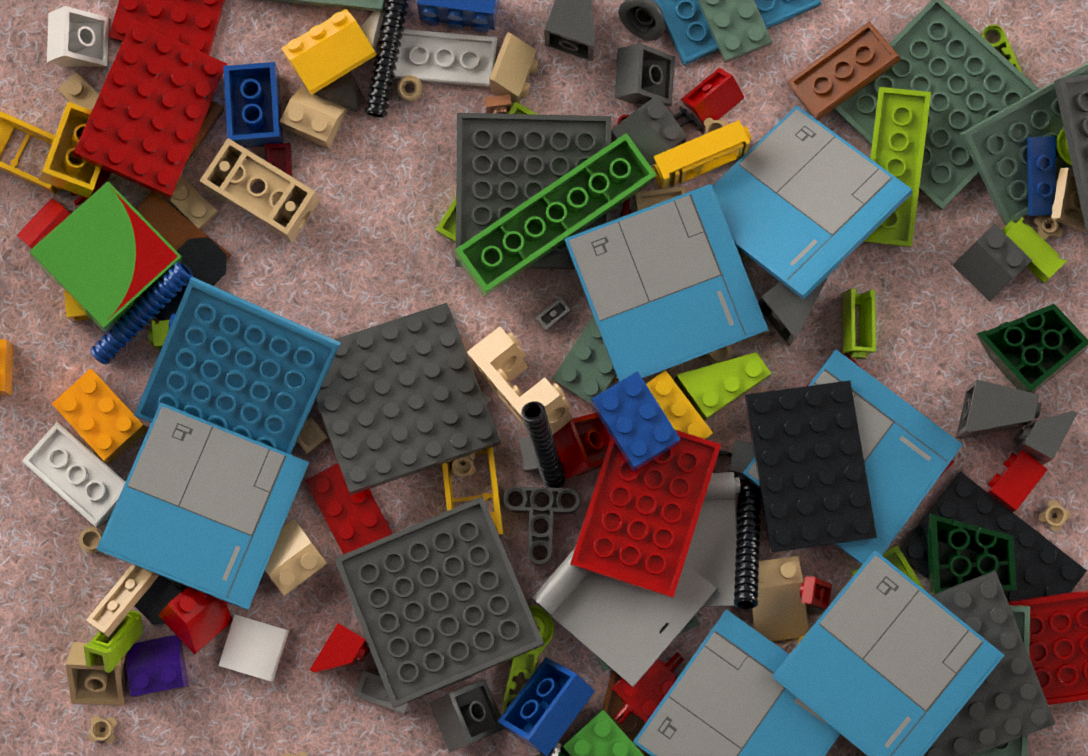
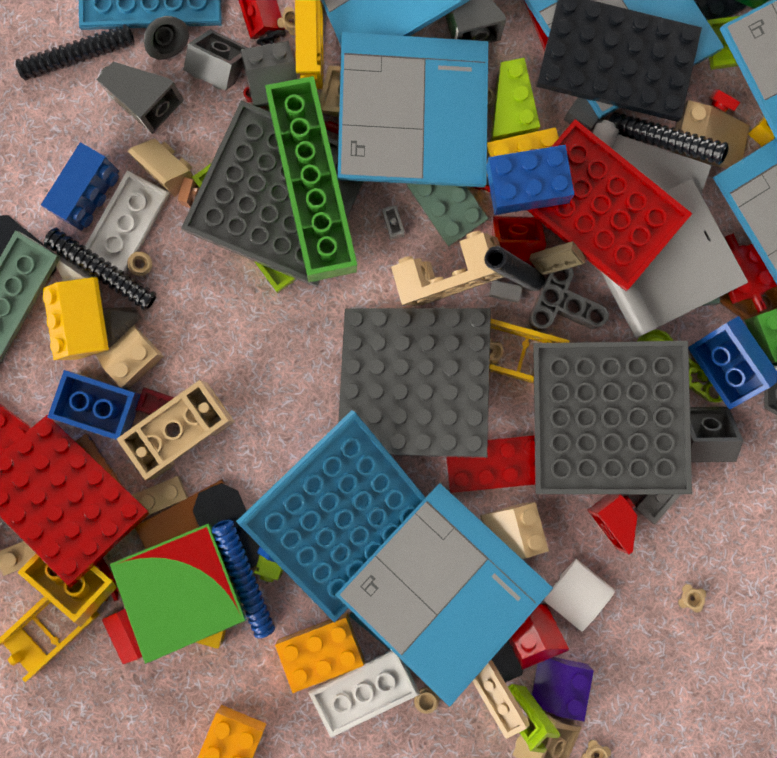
camera: 70 degrees left, 5 degrees up
(311, 436) = (415, 471): tan plate -> none
(576, 485) = (557, 258): none -> dark tan plate

